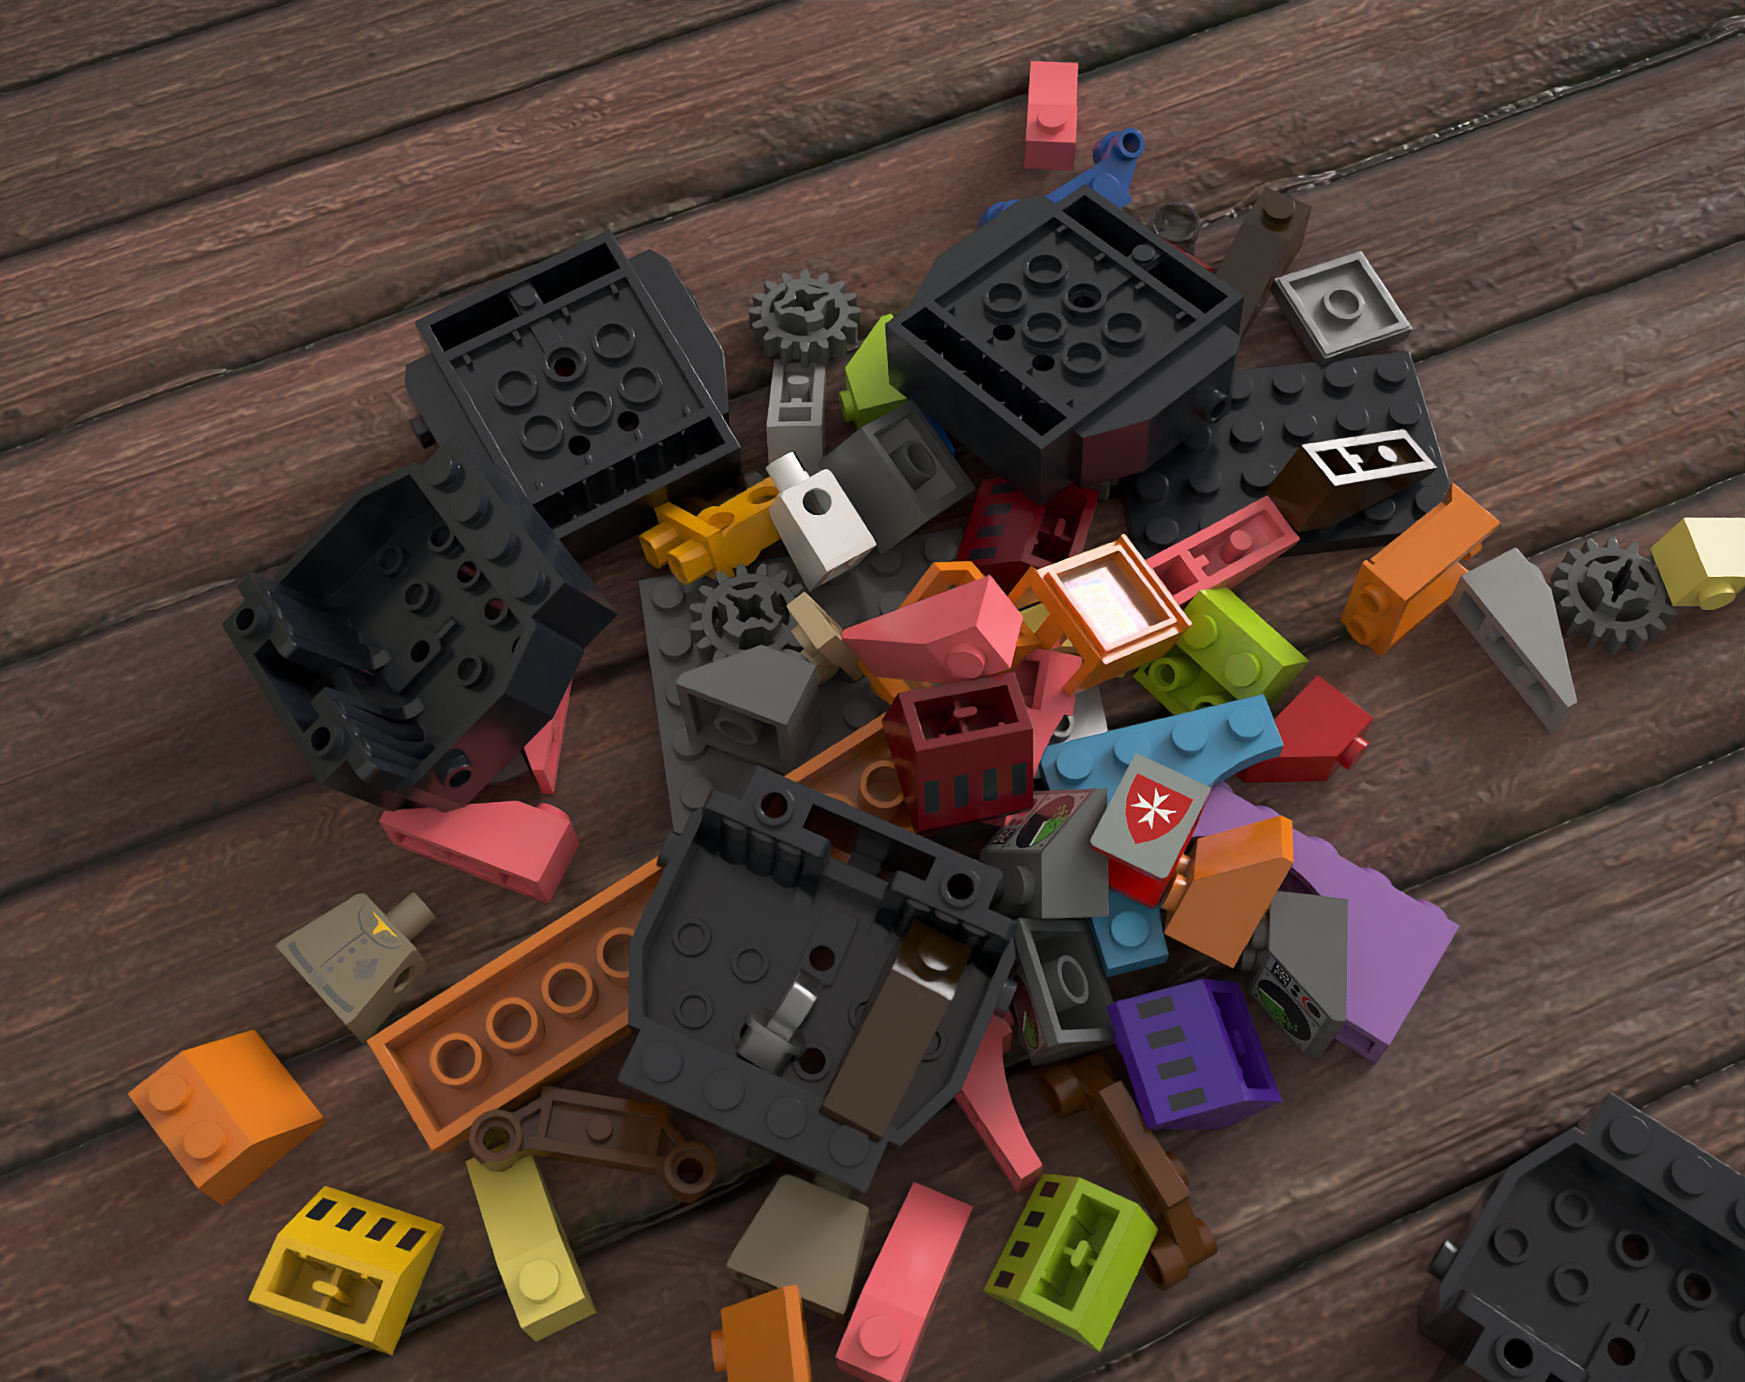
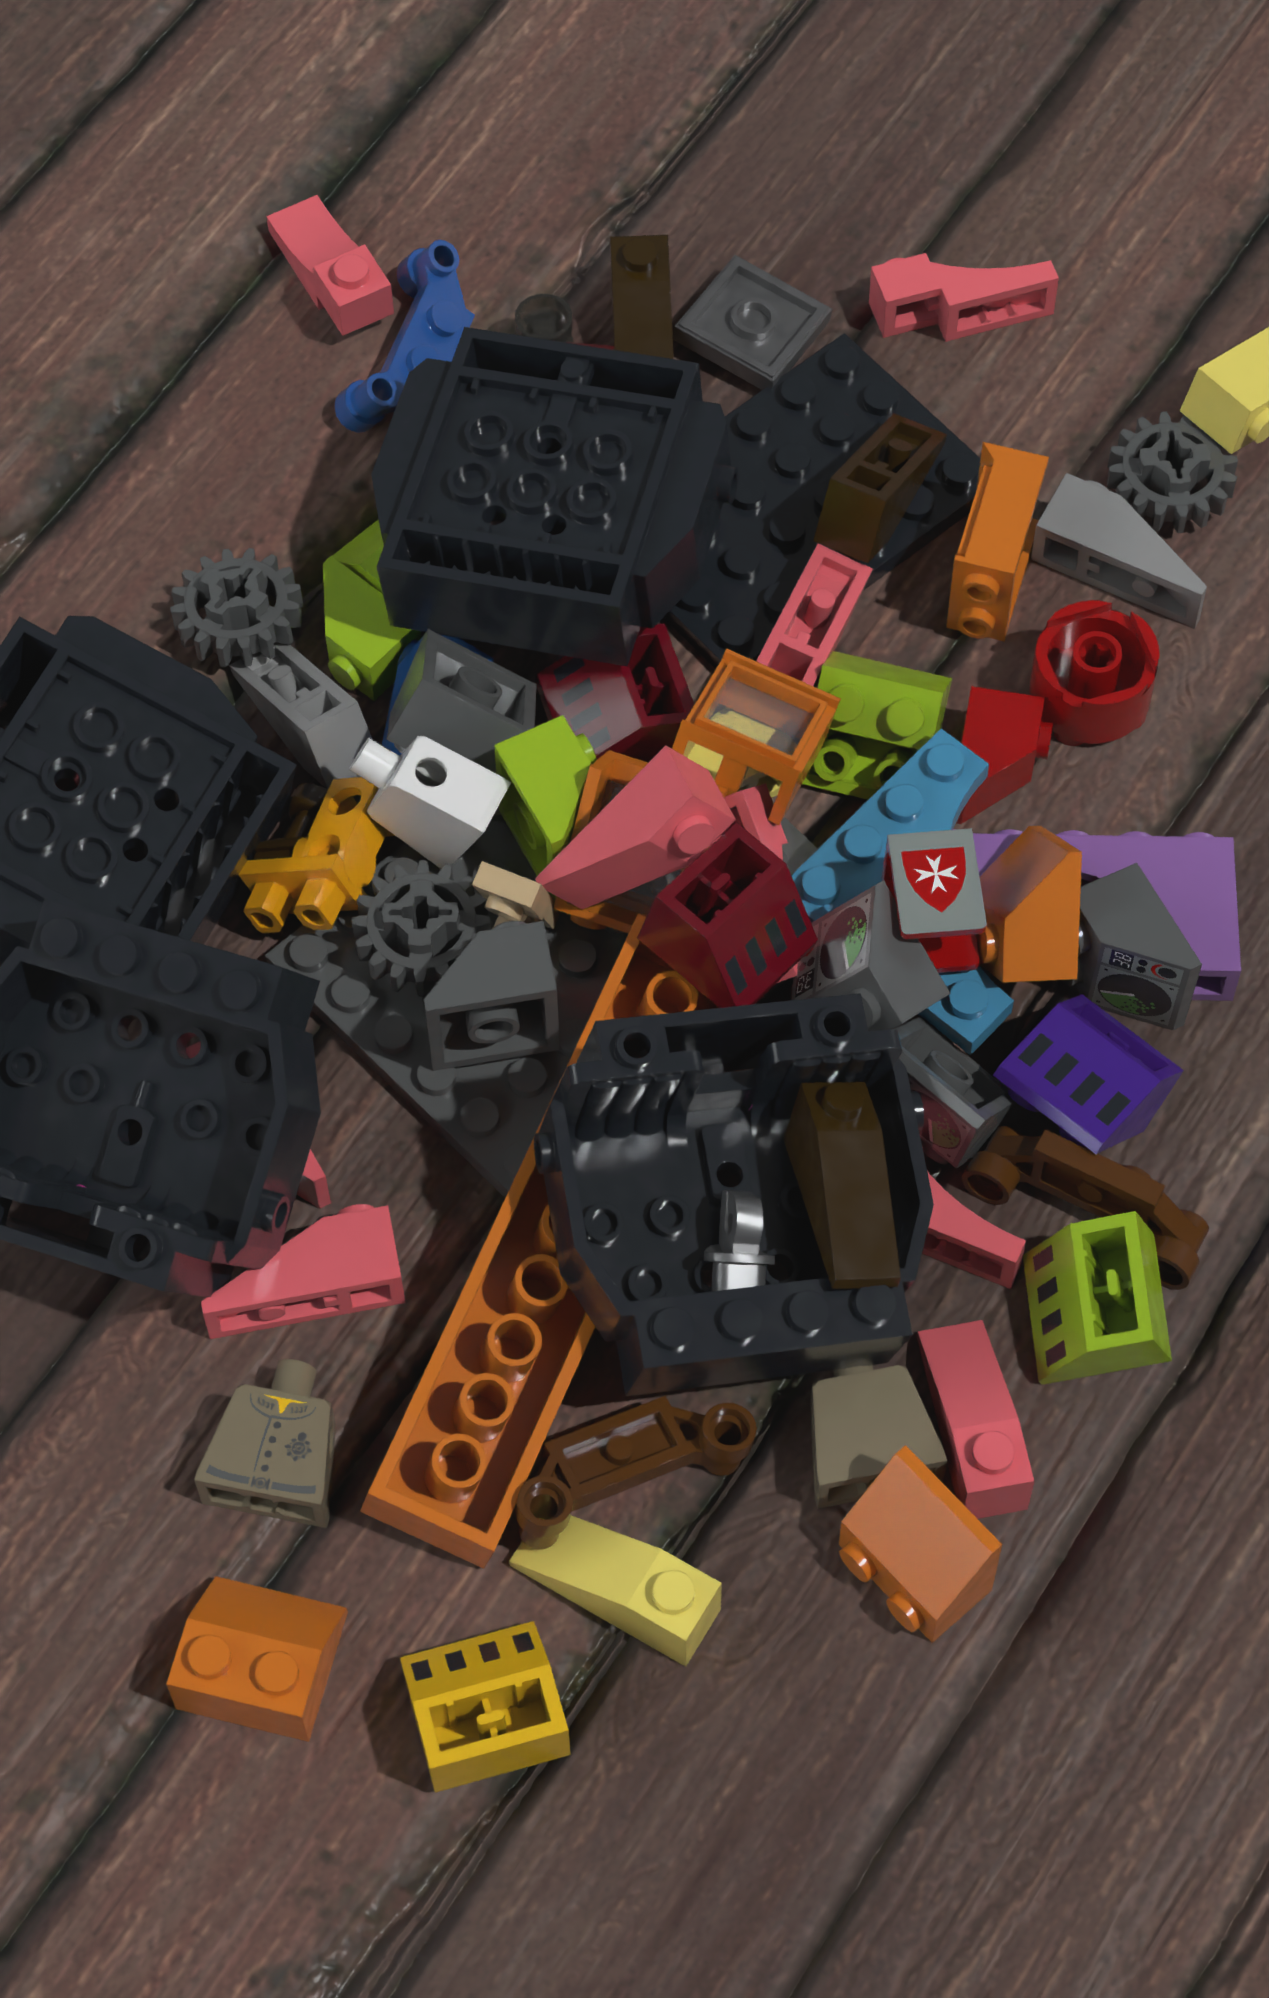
camera: 35 degrees left, 0 degrees up
(904, 552) = (545, 789): none -> lime slope
(1432, 721) = (1094, 672): none -> red brick
(1522, 372) = (961, 300): none -> coral slope

